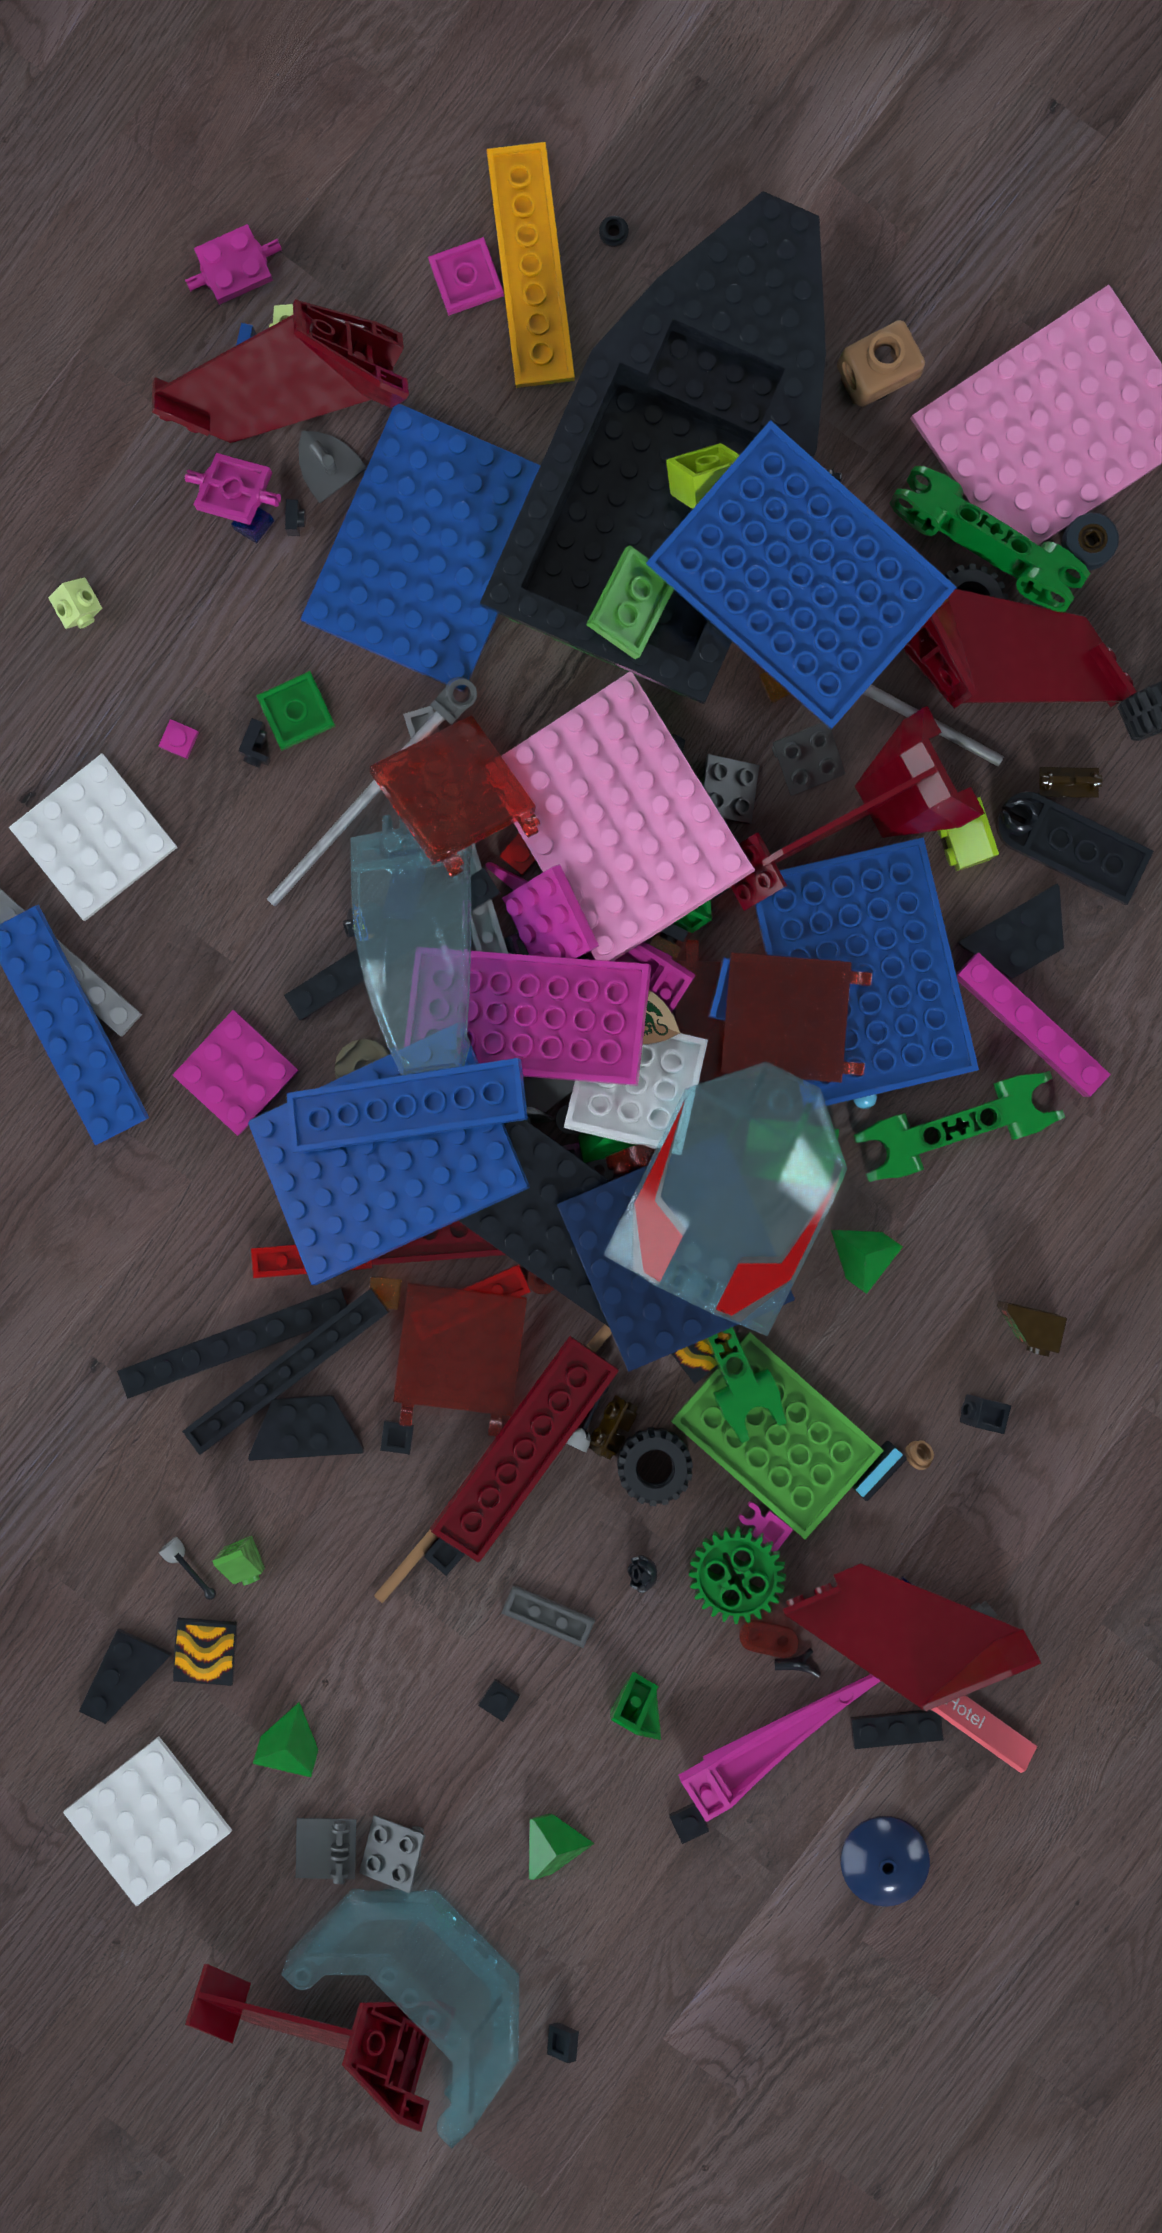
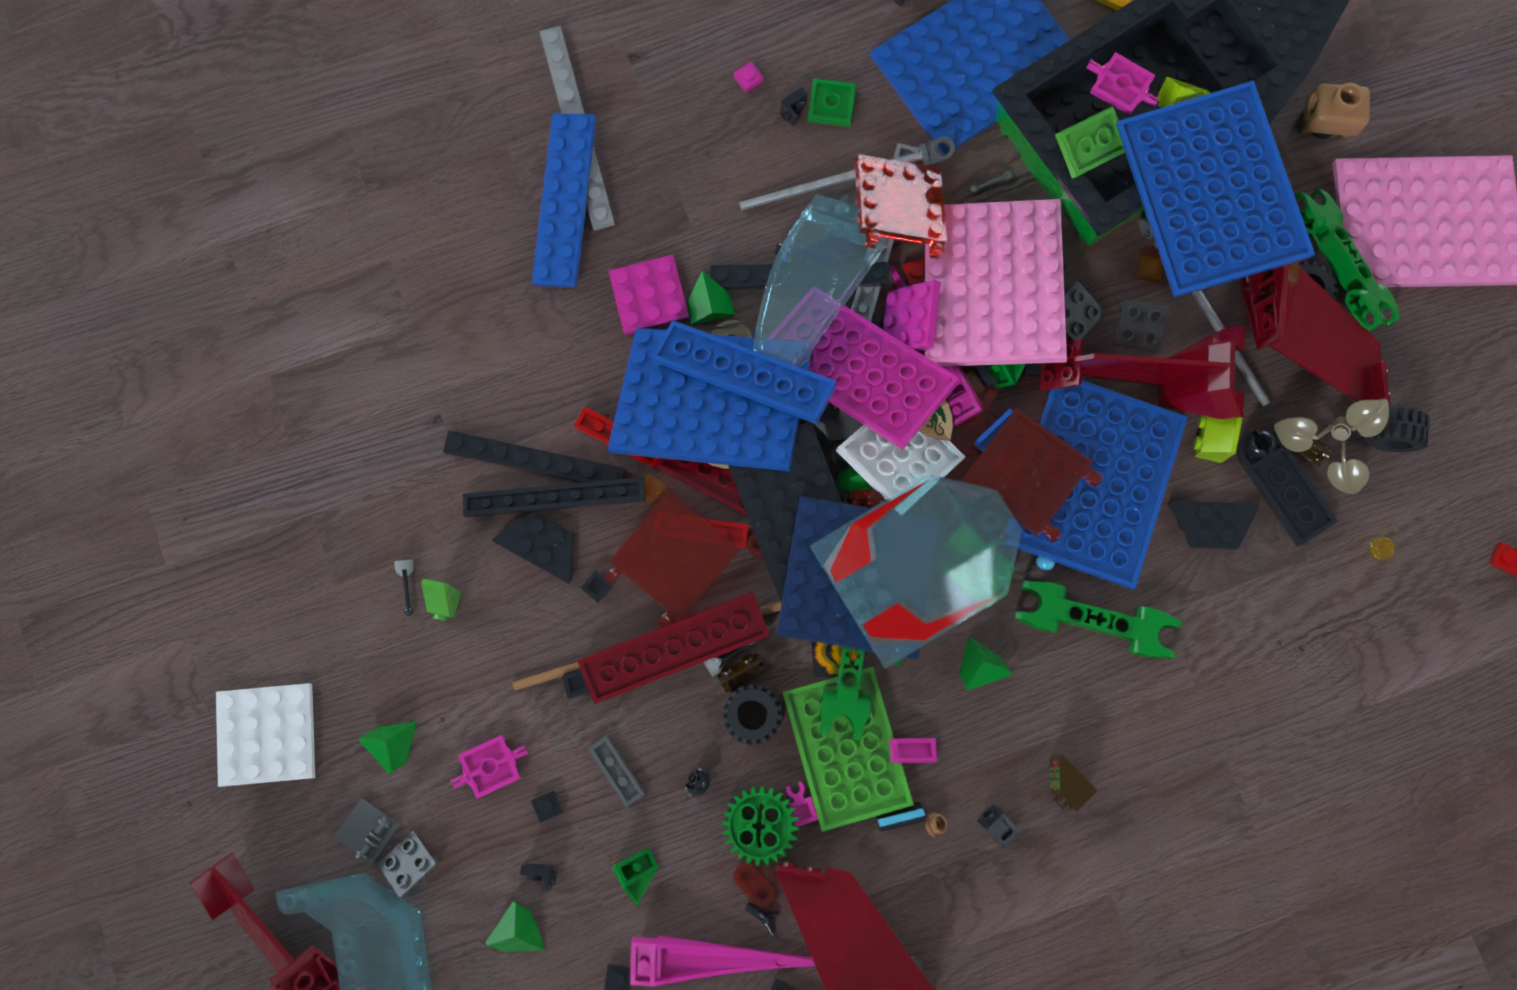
camera: 35 degrees right, 10 degrees down
(93, 837) = (657, 102): white plate -> none
(121, 1674) = (317, 625): black wing -> none
(205, 1651) = (379, 646): slope -> none
(309, 1038) = (708, 301): none -> green slope
(410, 1699) = (489, 766): none -> dark pink plate
(533, 1773) = (535, 871): none -> black bracket
(551, 670) = (1007, 176): none -> dark grey hinge
(624, 509) = (1122, 84): none -> dark pink plate
(848, 1393) = (913, 750): none -> dark pink tile
(1032, 1025) = (1187, 584): dark pink brick -> none
(1085, 548) = (1410, 292): black wheel -> none
(1117, 723) = (1366, 416): none -> dark tan plant

